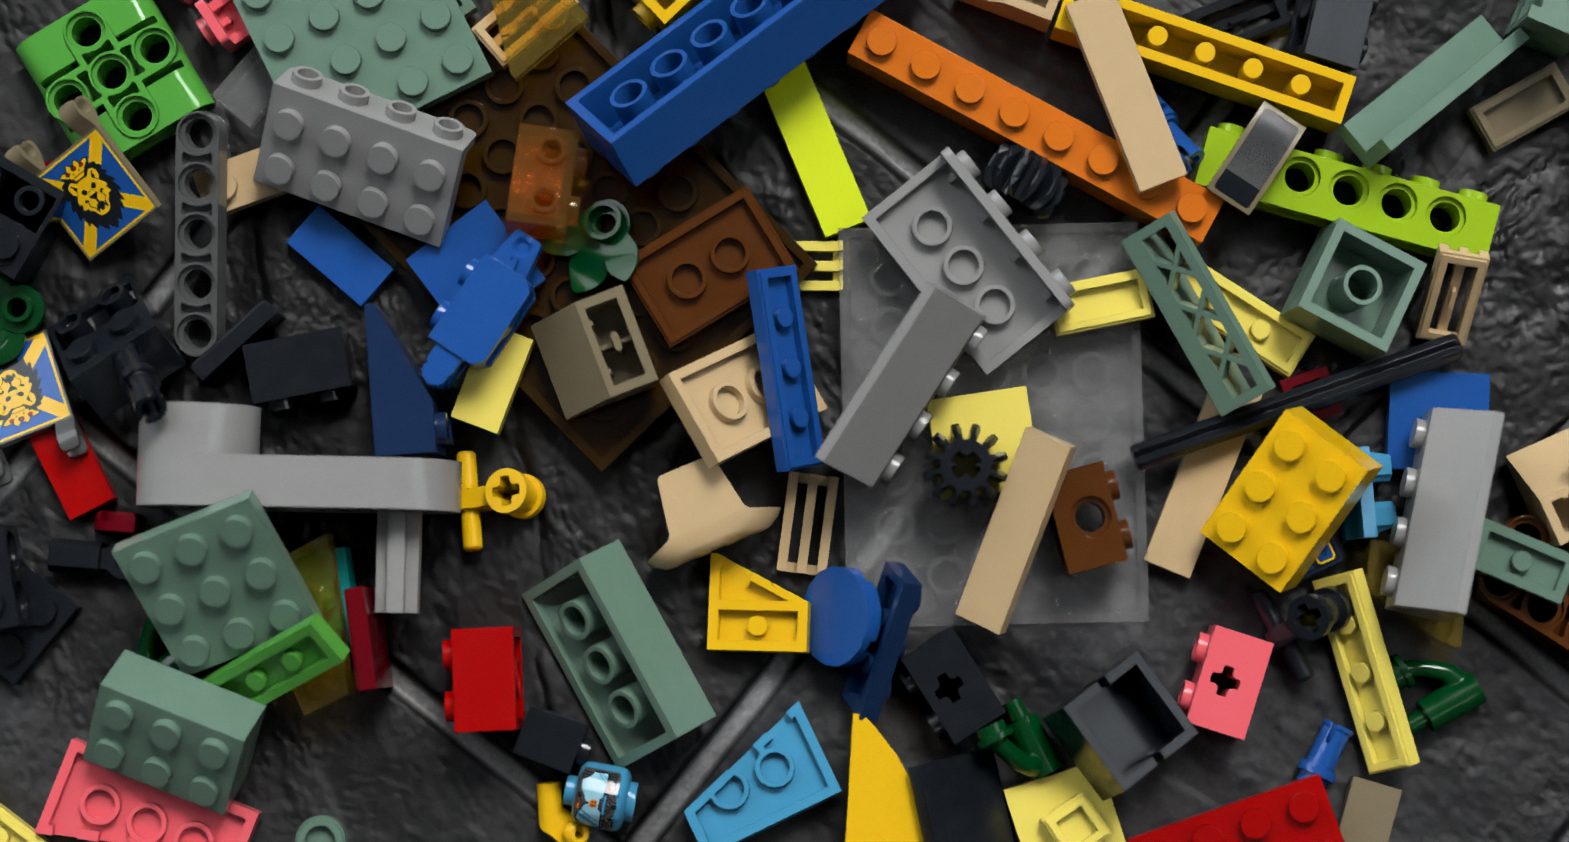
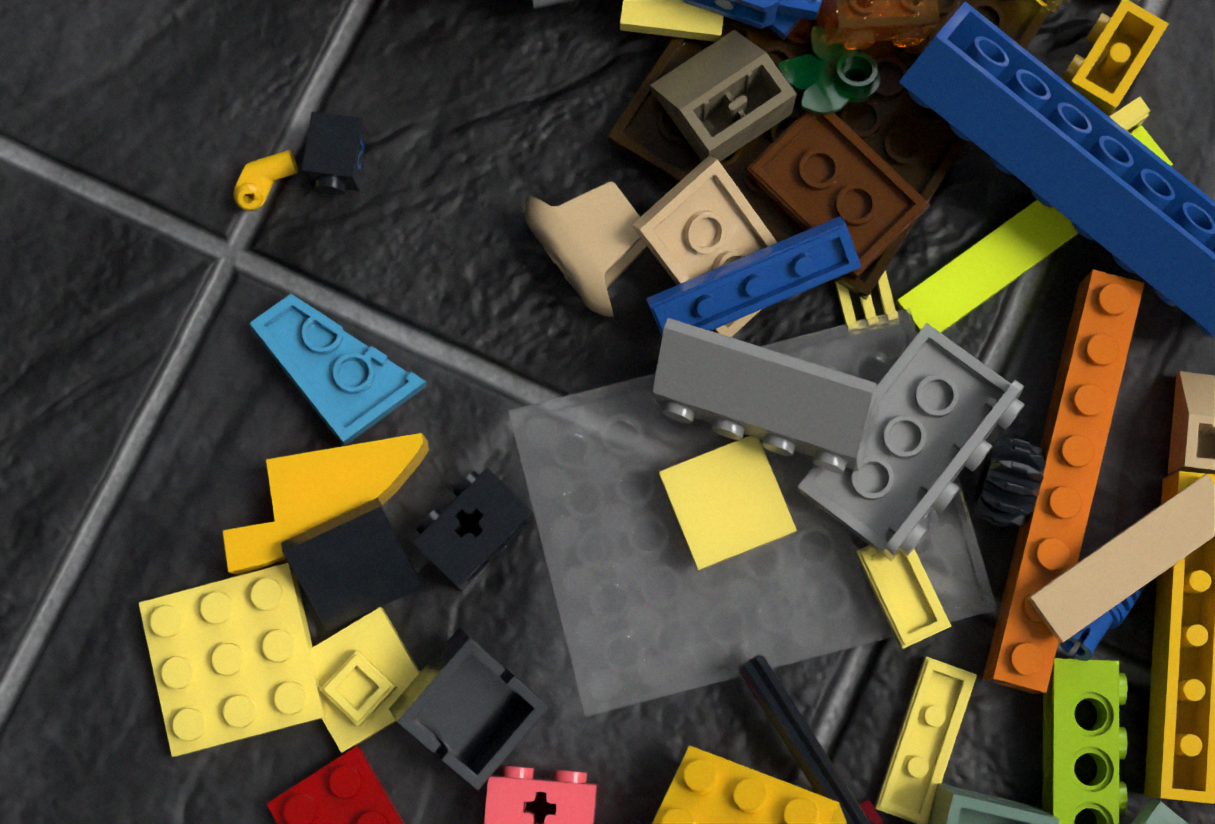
camera: 85 degrees right, 5 degrees down
(485, 679) = (377, 68): red brick -> none
(495, 496) = (563, 44): yellow piece -> none
(601, 796) = (289, 211): head -> none
(618, 654) = (434, 196): sand green slope -> none
(753, 612) = (503, 316): yellow wing -> none
(813, 482) = (604, 331): tan tile -> none
(842, 616) = (517, 399): blue tile -> none
(870, 680) = (501, 445): dark blue plate -> none
(963, 449) = (715, 480): black gear -> none
(1015, 530) = (645, 550): tan tile -> none
(1031, 746) = (427, 630): dark green plant -> none
(1084, 549) = (692, 594): reddish brown brick -> none
(1192, 318) = (913, 681): sand green fence -> none
(1192, 500) = (738, 737): tan tile -> none
(1256, 157) = (1099, 715): slope -> none

